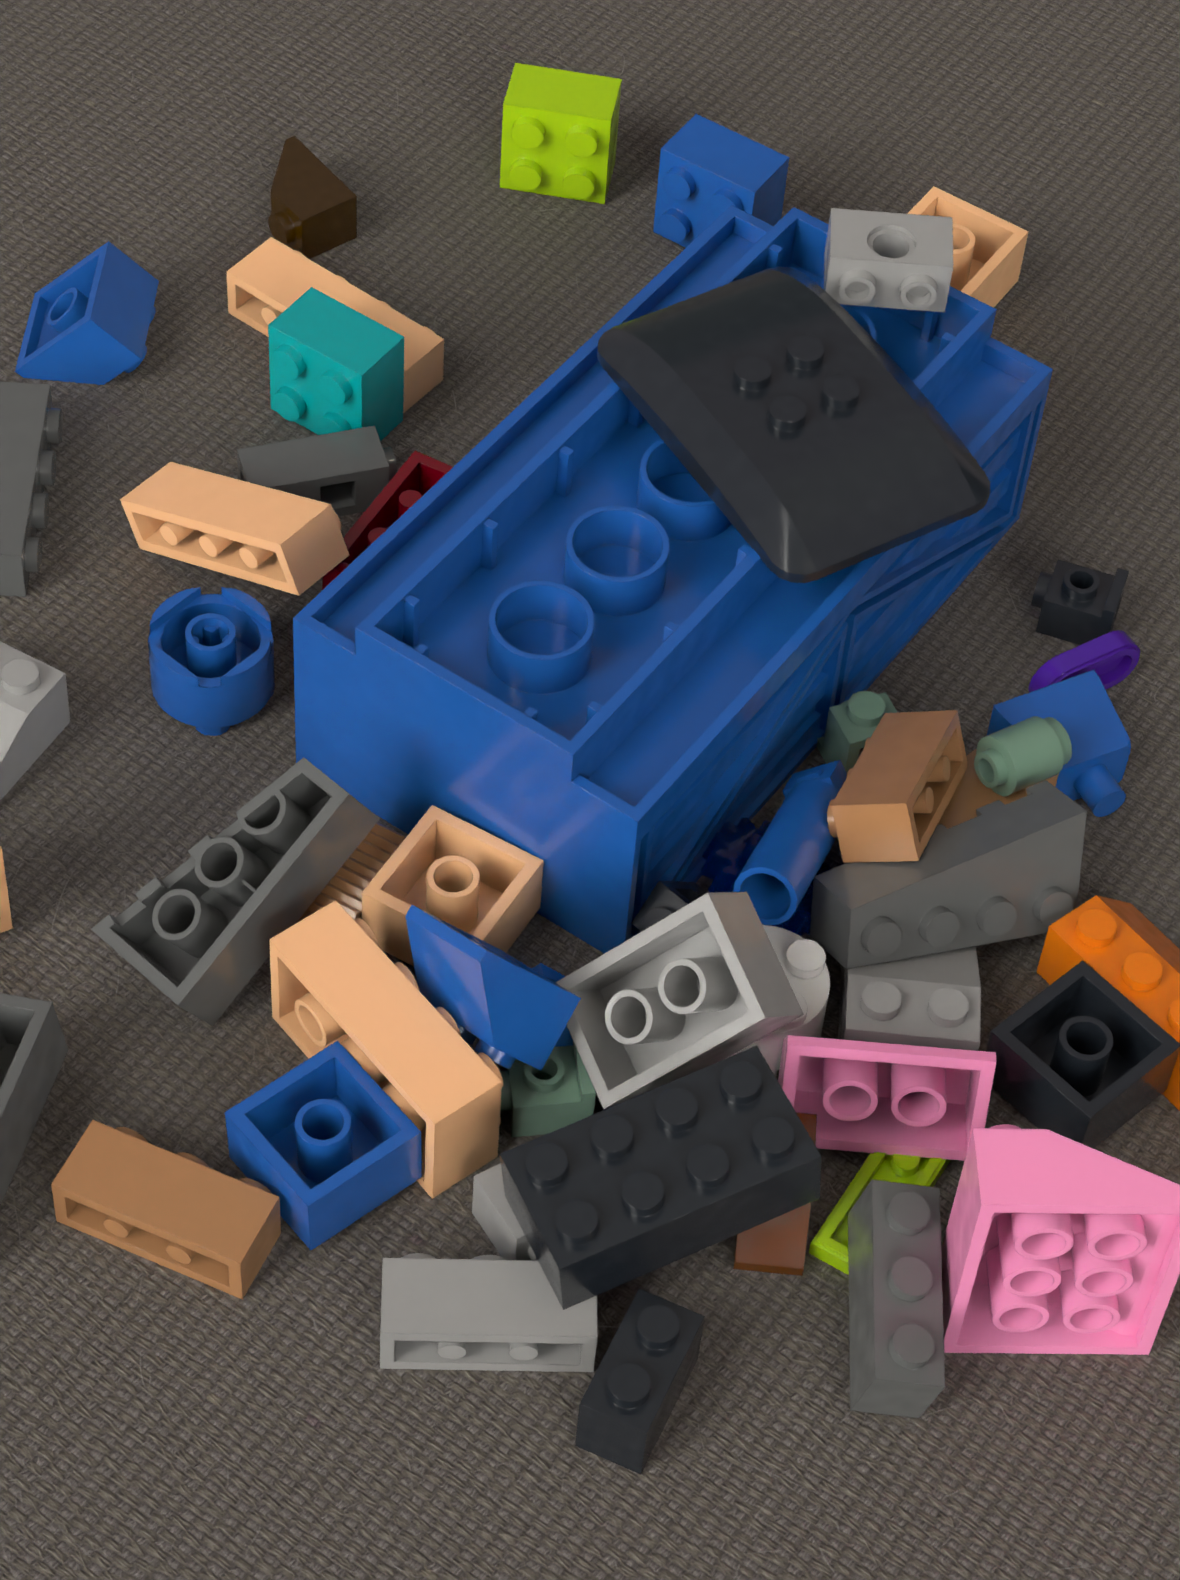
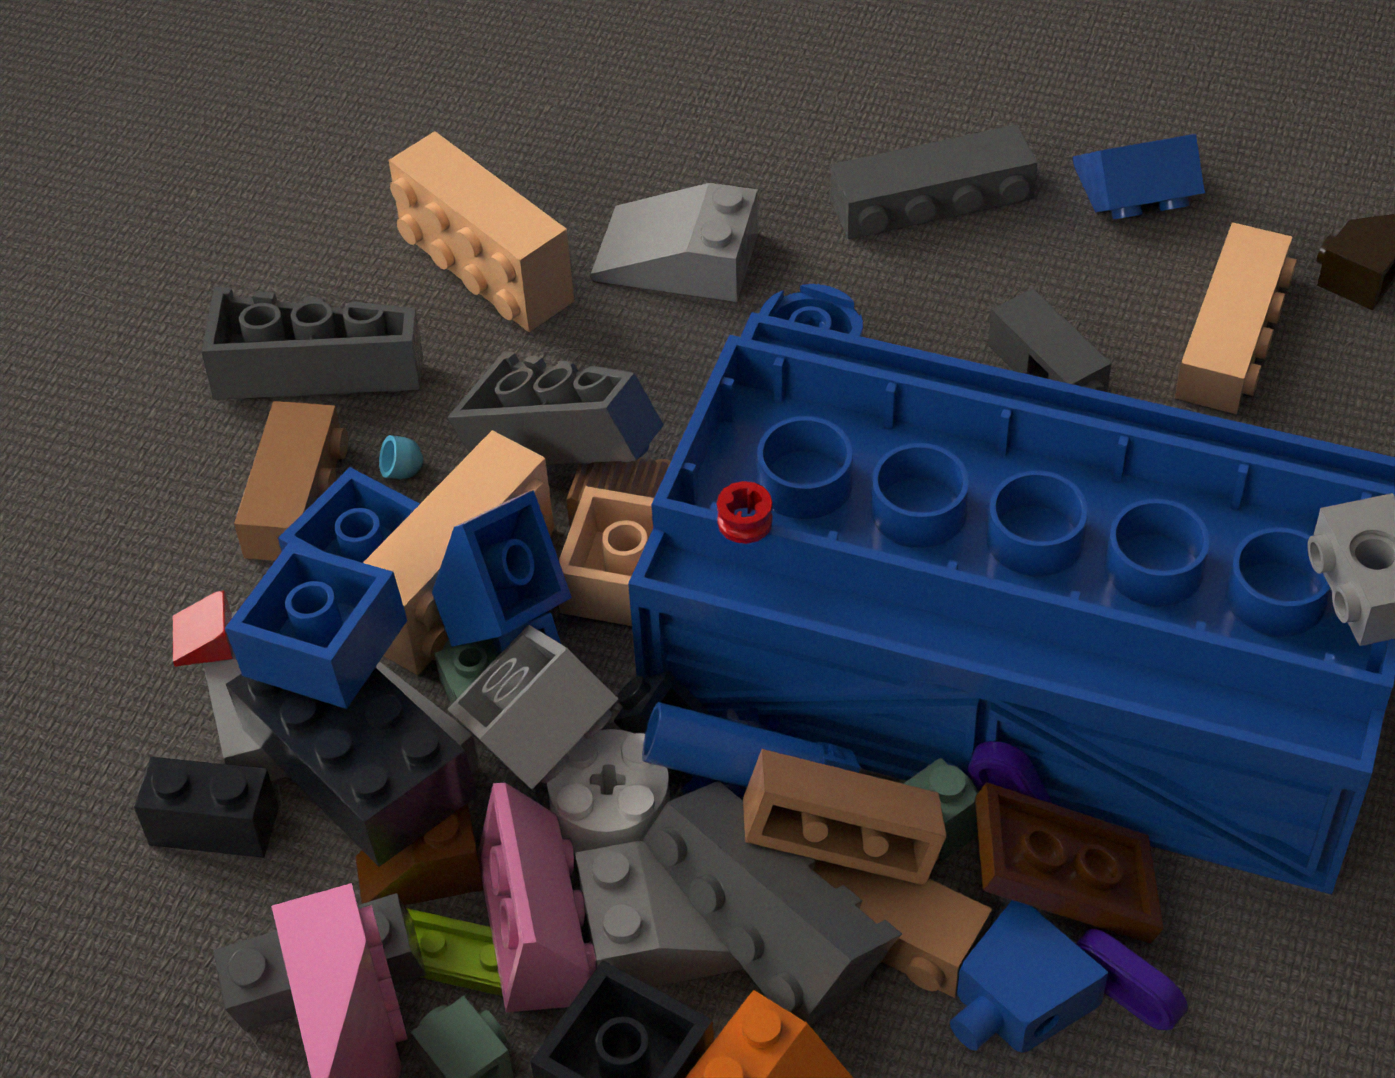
camera: 80 degrees right, 0 degrees up
(160, 1095) = (400, 458): none -> medium azure hinge
(236, 527) = (939, 299): light nougat brick -> none
(335, 367) = (1154, 321): teal brick -> none
(416, 1312) = (201, 631): none -> slope
(571, 1119) = (317, 624): none -> blue brick
(646, 669) = (749, 496): none -> red bush
(794, 422) = (1126, 561): black wedge -> none
(870, 667) = (1007, 768): none -> dark purple tile
(968, 661) = (1067, 863): none -> reddish brown plate
(1022, 755) = (942, 917): sand green brick -> none
(1078, 602) = (1221, 959): black brick -> none

